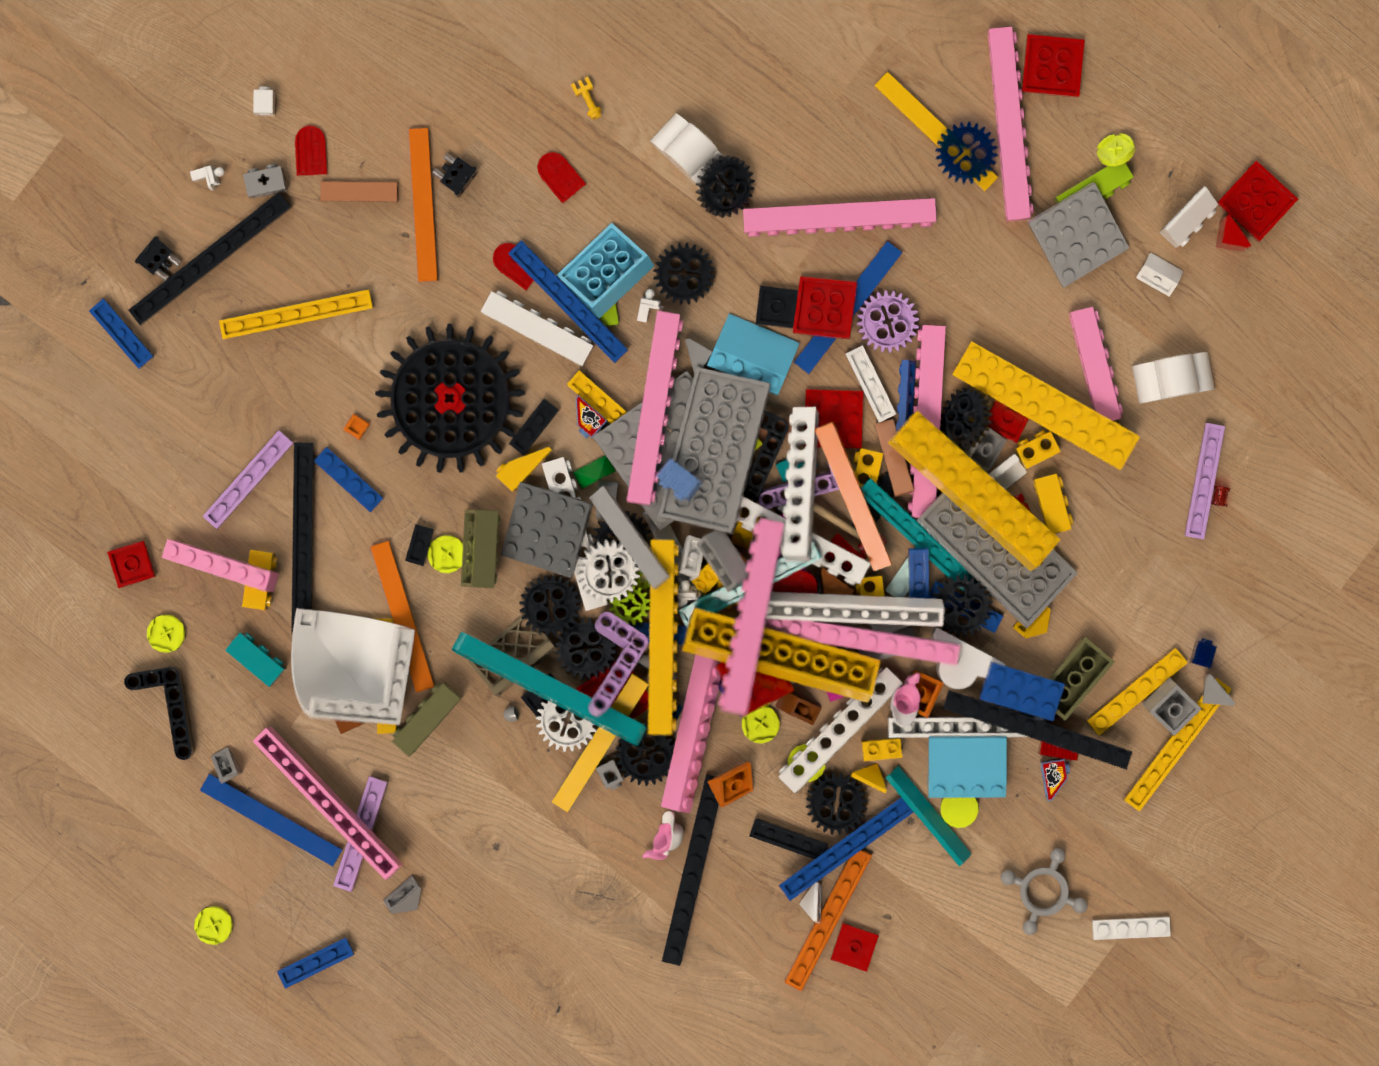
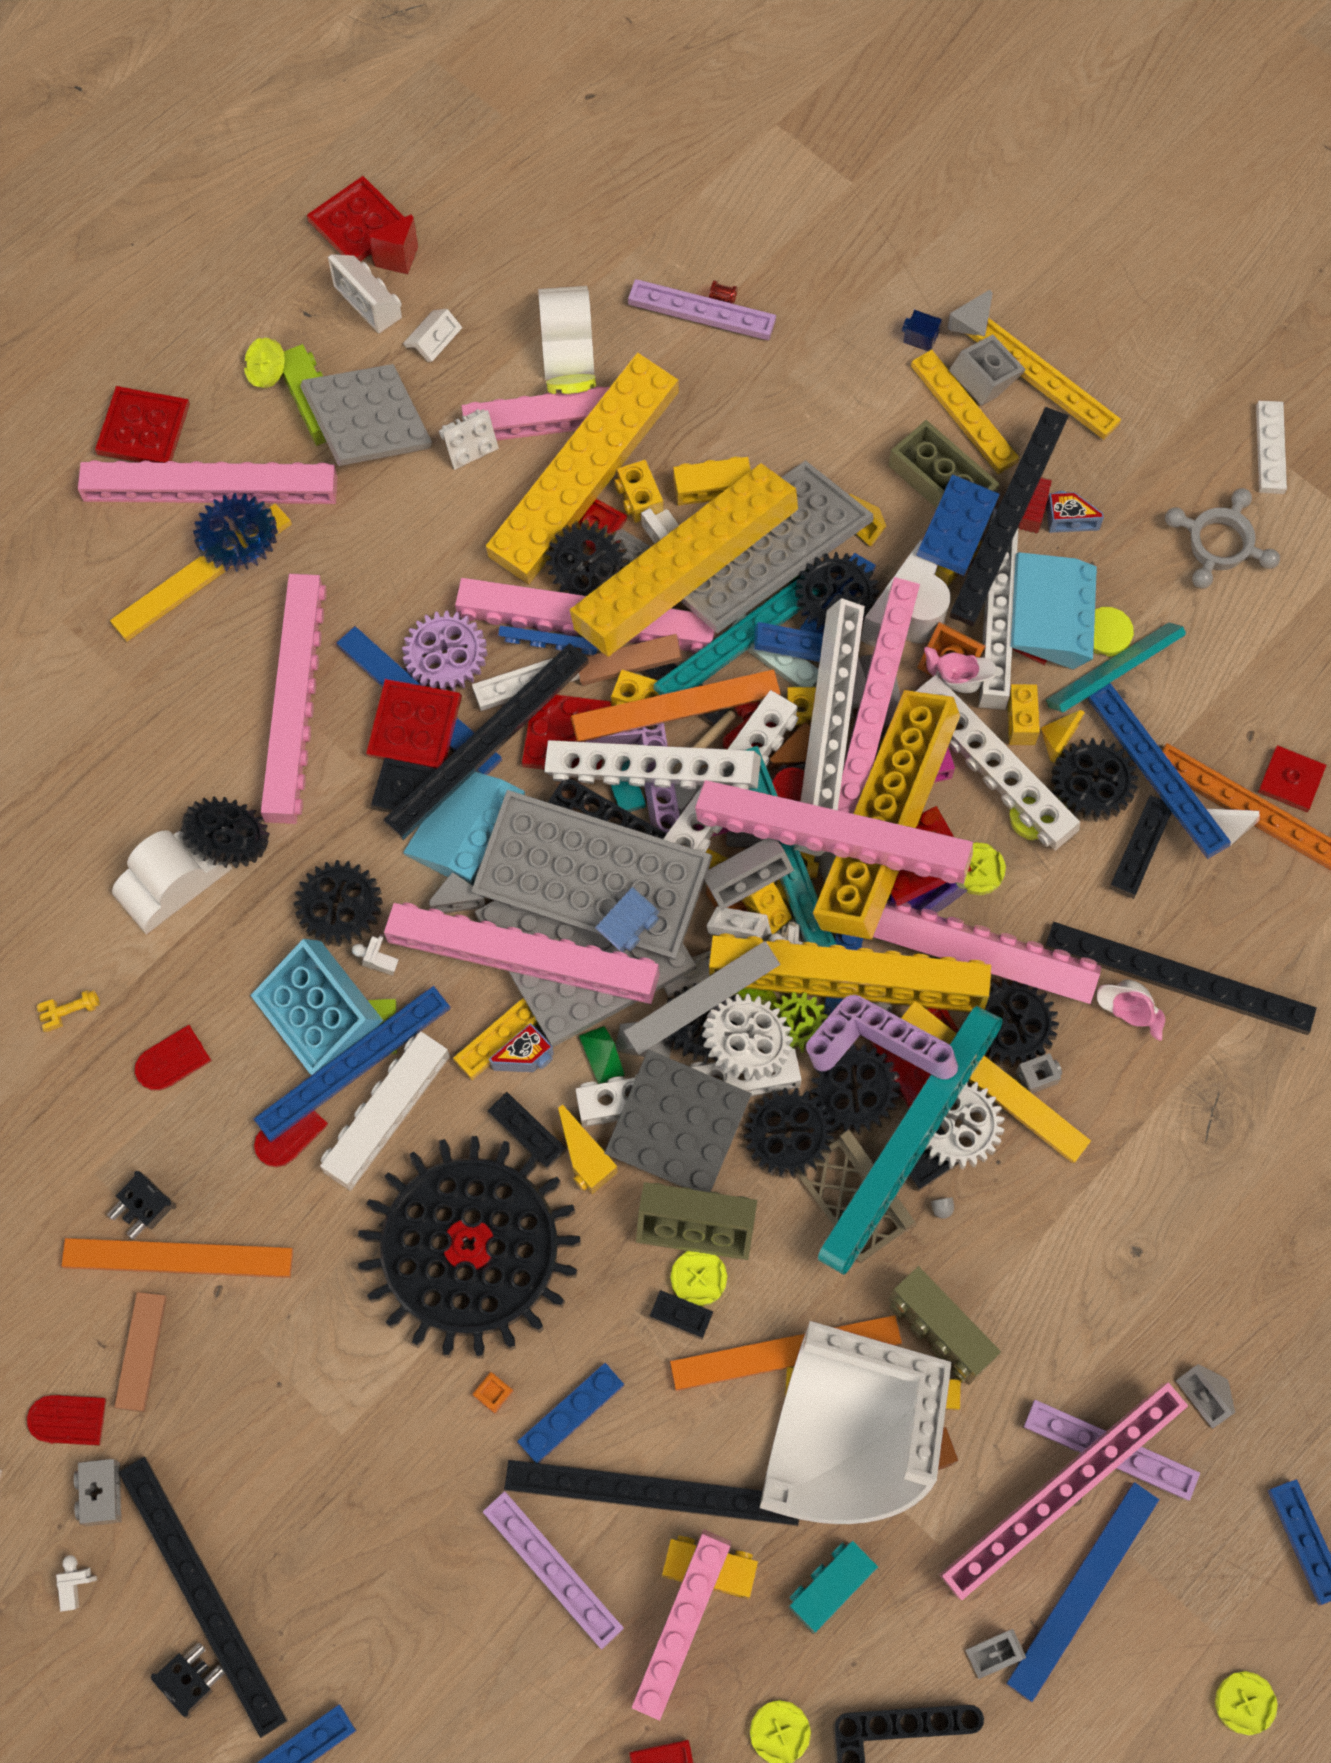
camera: 85 degrees left, 20 degrees down
(296, 314) = (309, 1469): yellow plate -> none
(732, 784) = (1059, 908): orange slope -> none
(798, 708) = (961, 811): dark orange slope -> none
(816, 362) = (485, 742): none -> black plate
(1062, 316) = (470, 438): none -> white hinge
(1122, 387) = (571, 383): none -> neon yellow tile

